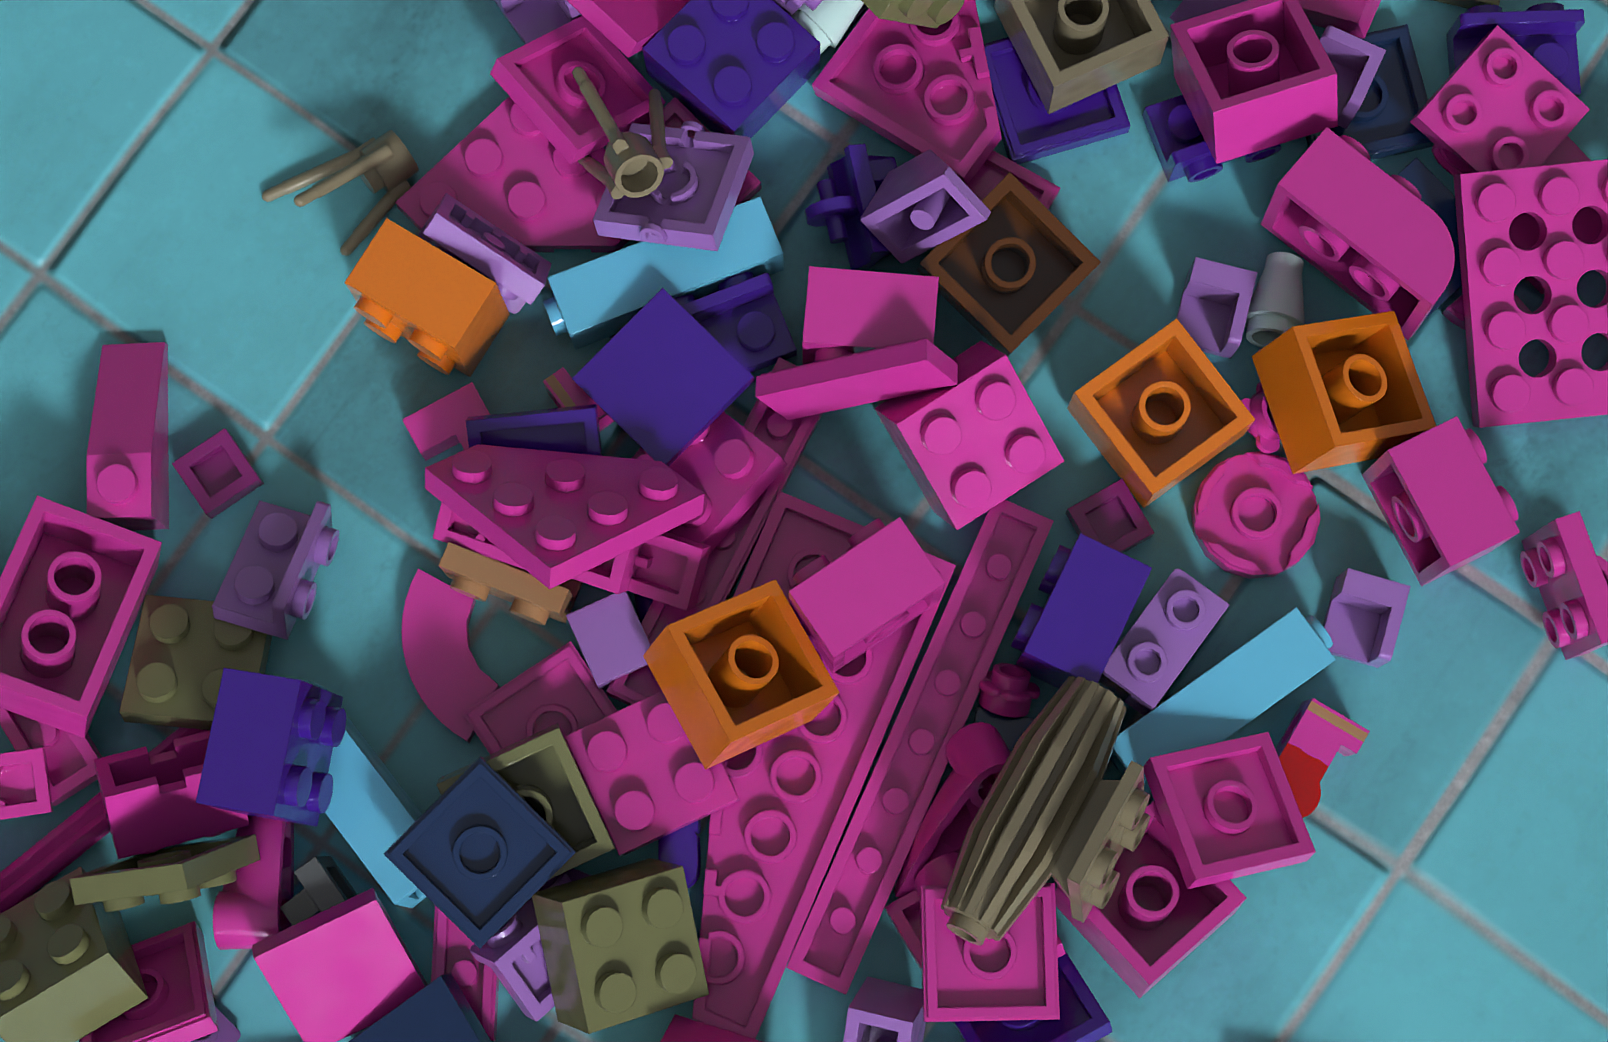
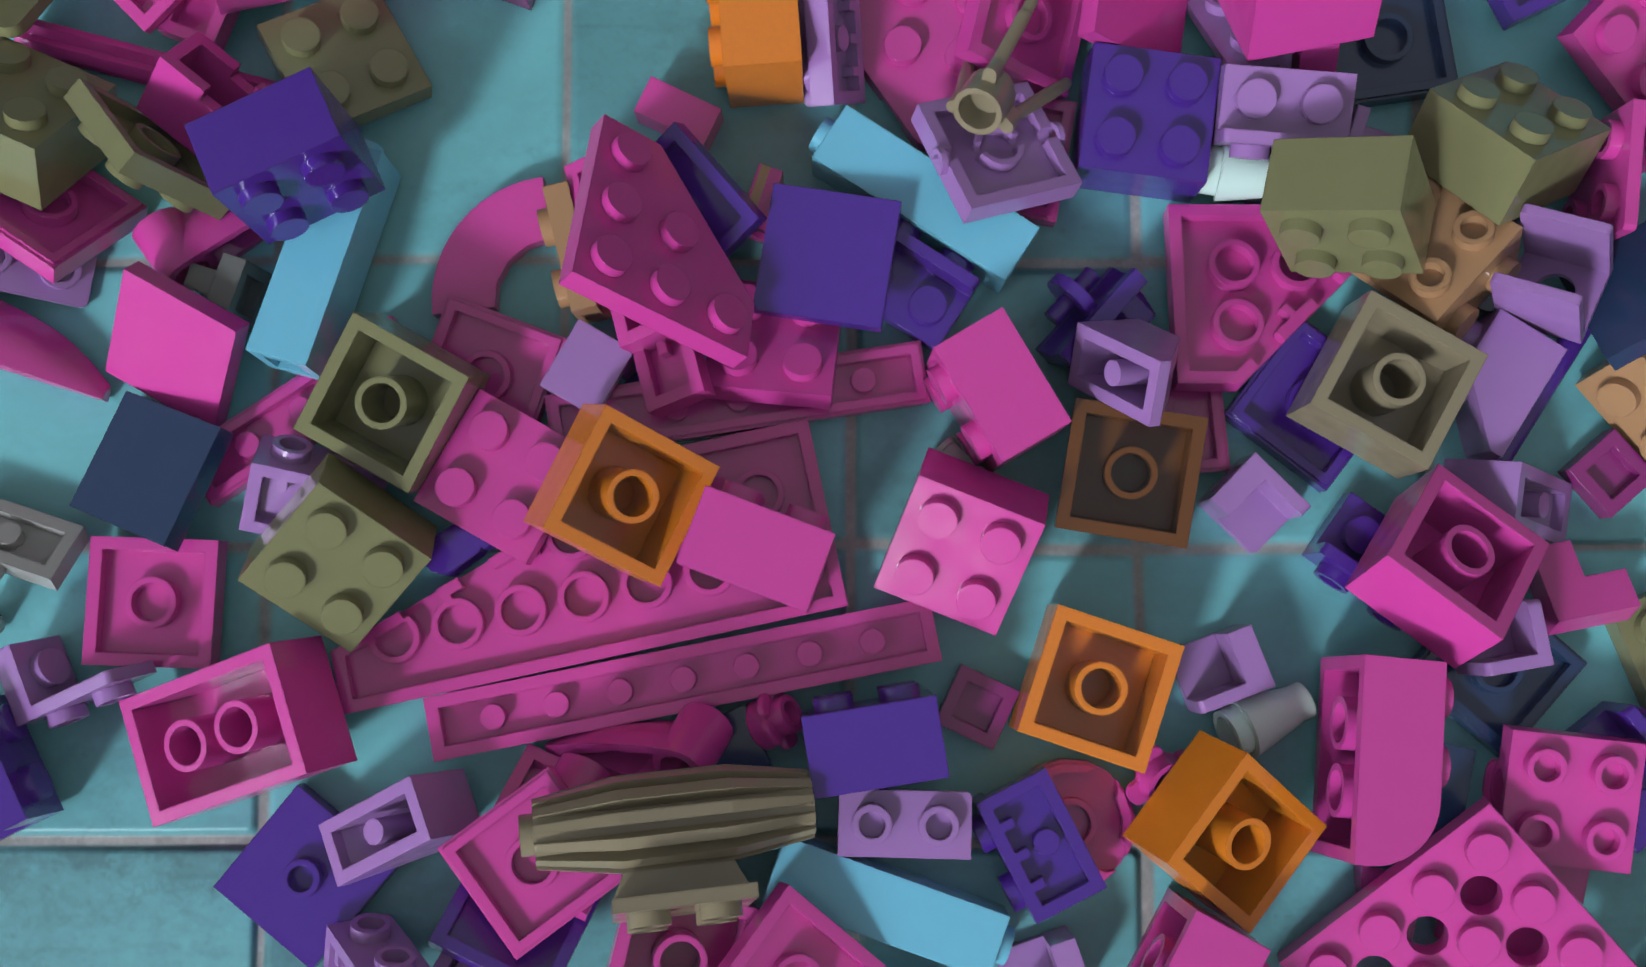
camera: 55 degrees right, 5 degrees up
(276, 569) = (460, 65): medium lavender bracket -> none
(480, 852) = (323, 386): dark blue tile -> none
(857, 379) = (938, 416): dark pink tile -> none
(1099, 189) = (1252, 502): none -> medium lavender panel
(1255, 550) = (1037, 845): none -> dark purple bracket

